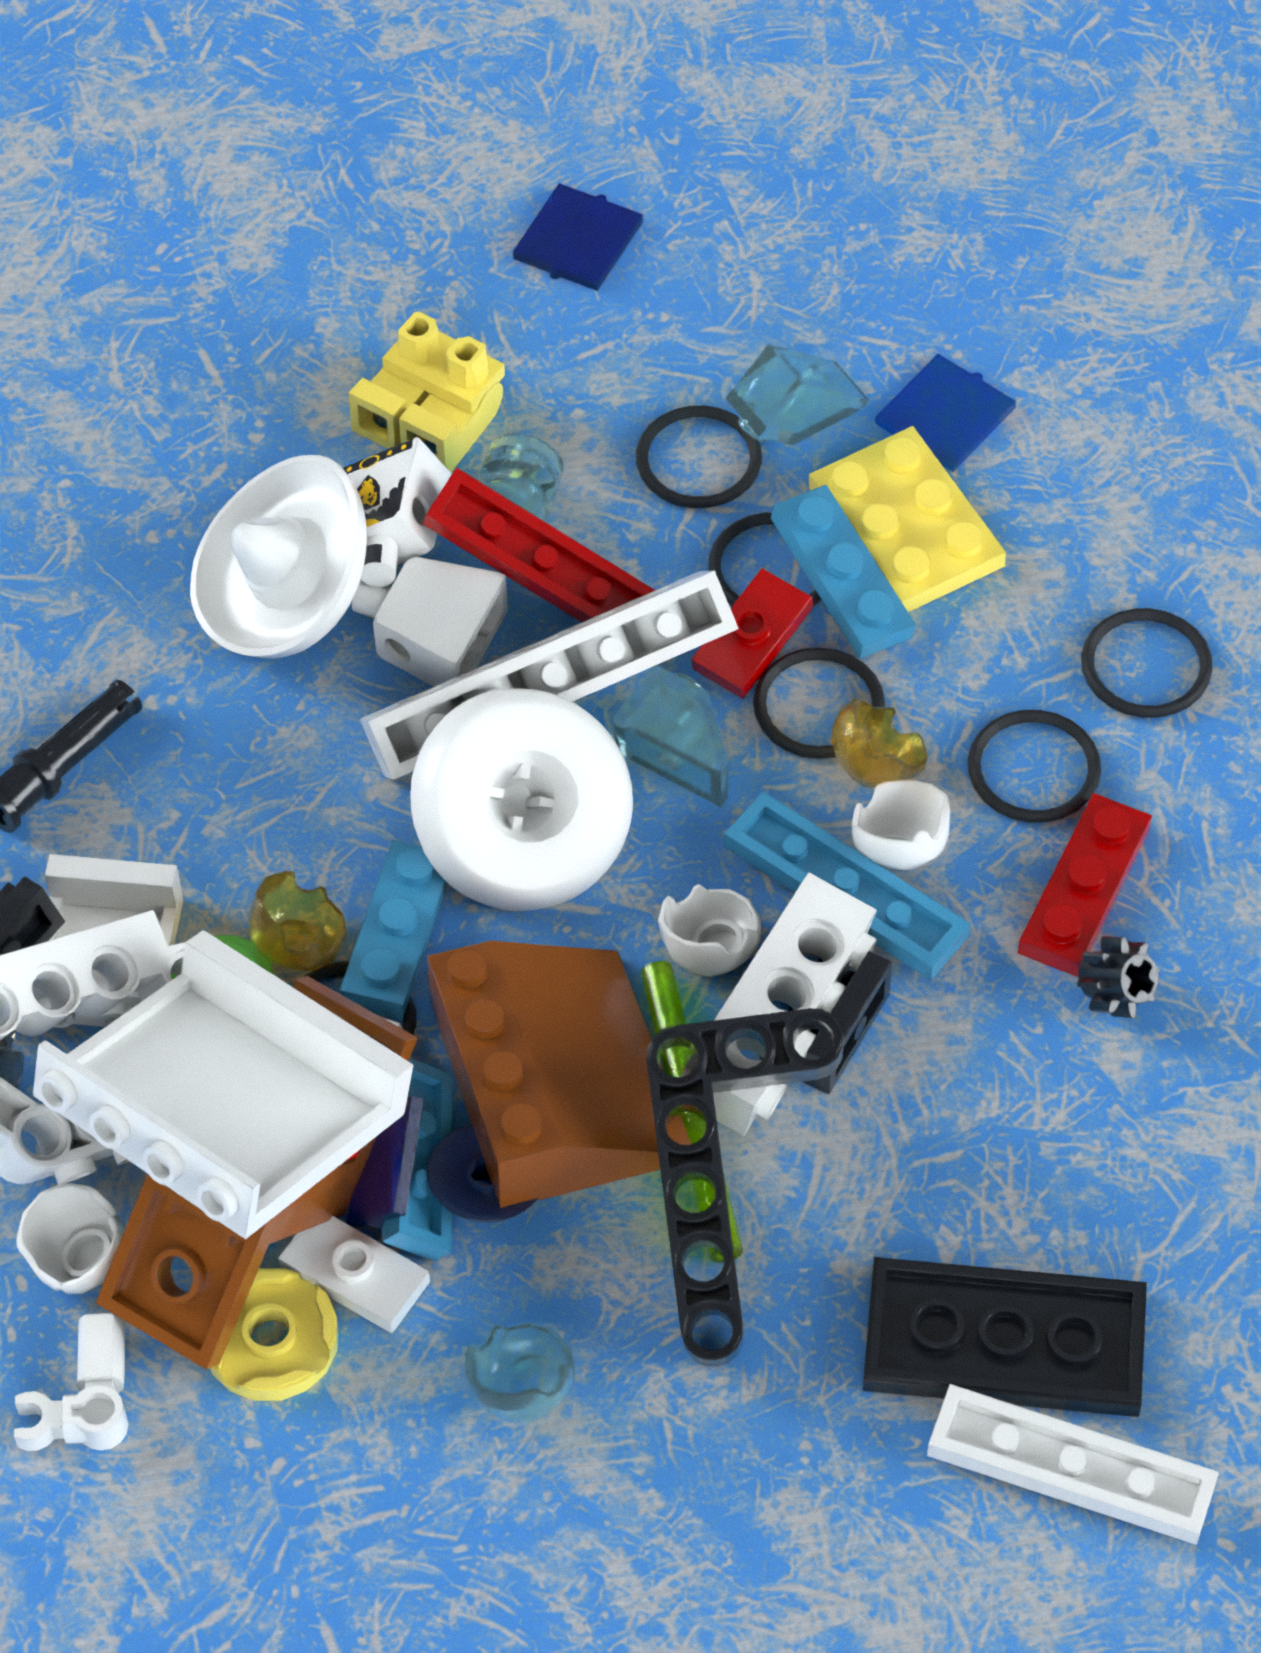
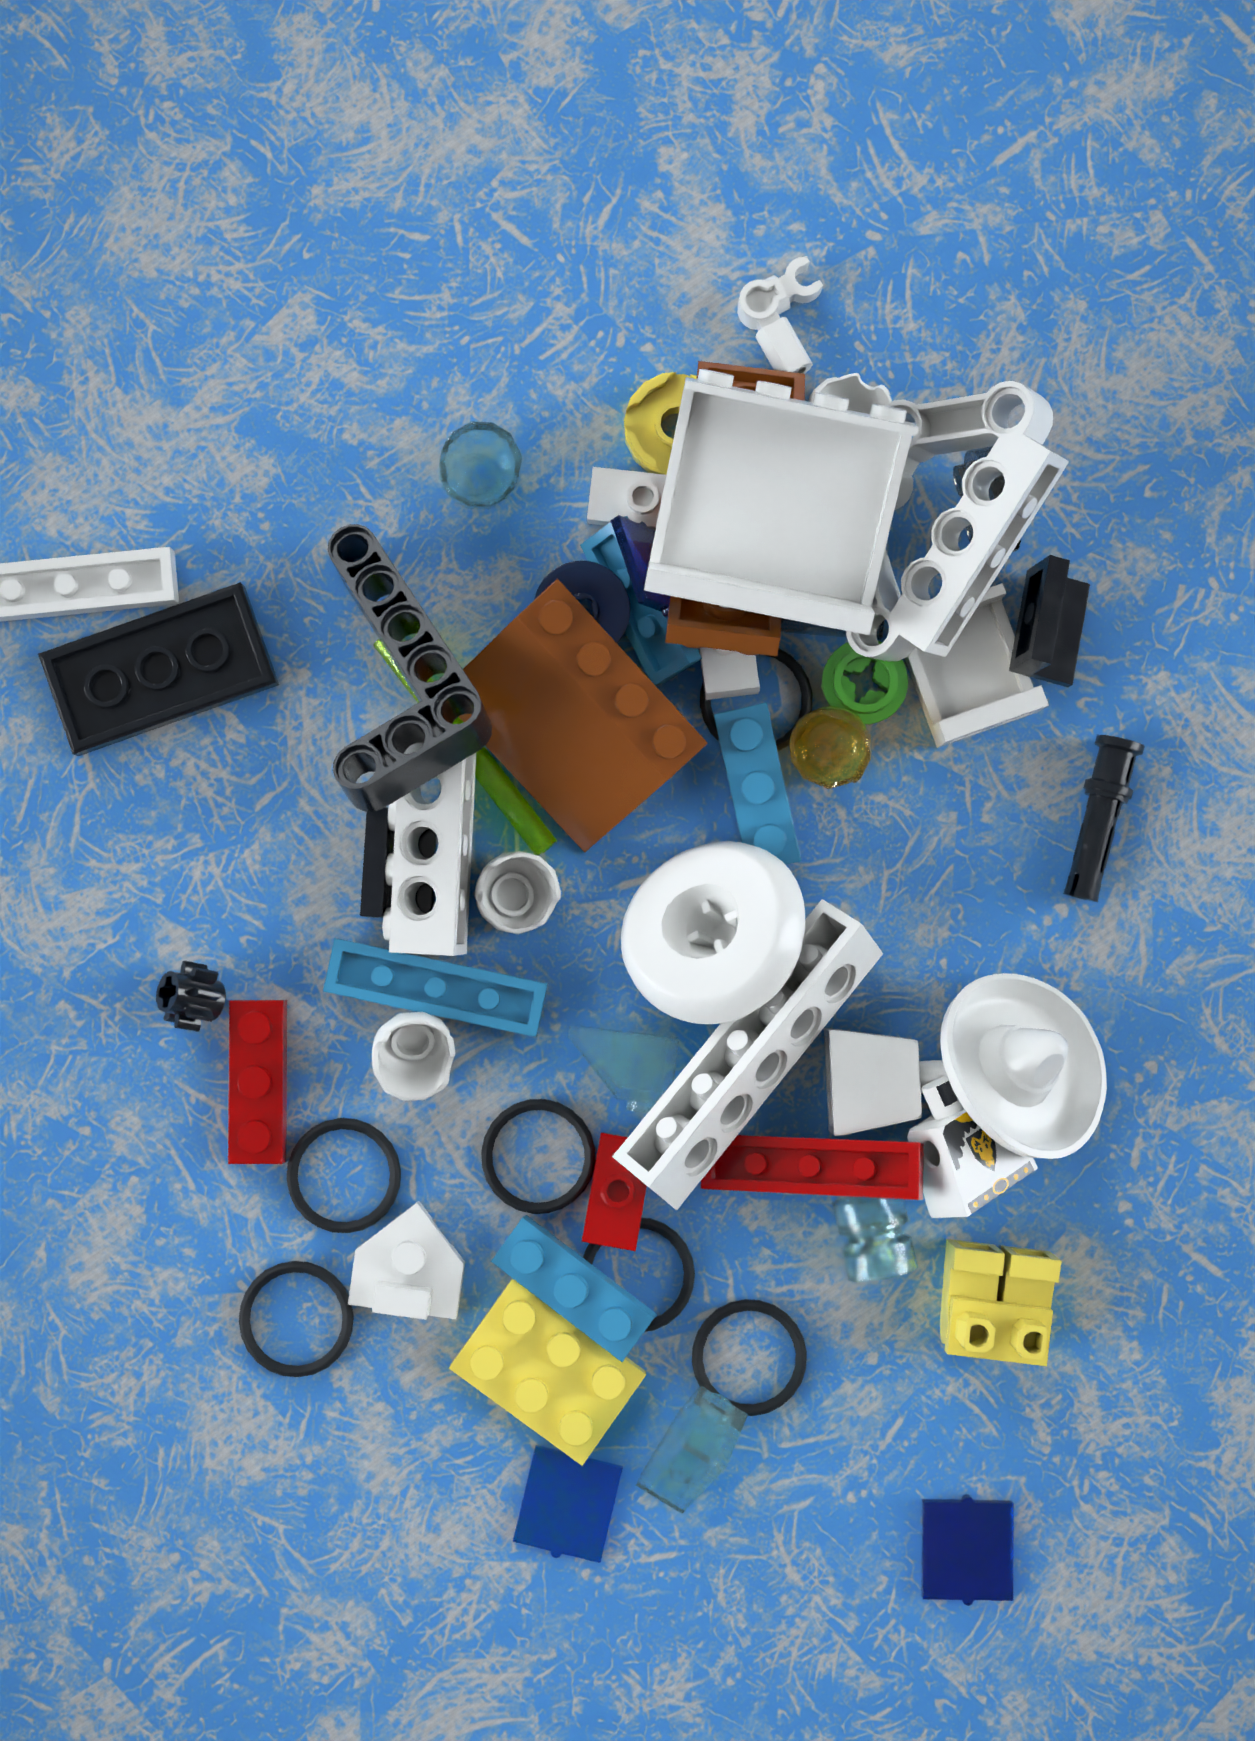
camera: 155 degrees right, 30 degrees up
(872, 747) = (463, 1120): clear yellow hair -> none
(1008, 653) = (408, 1269): none -> white plate

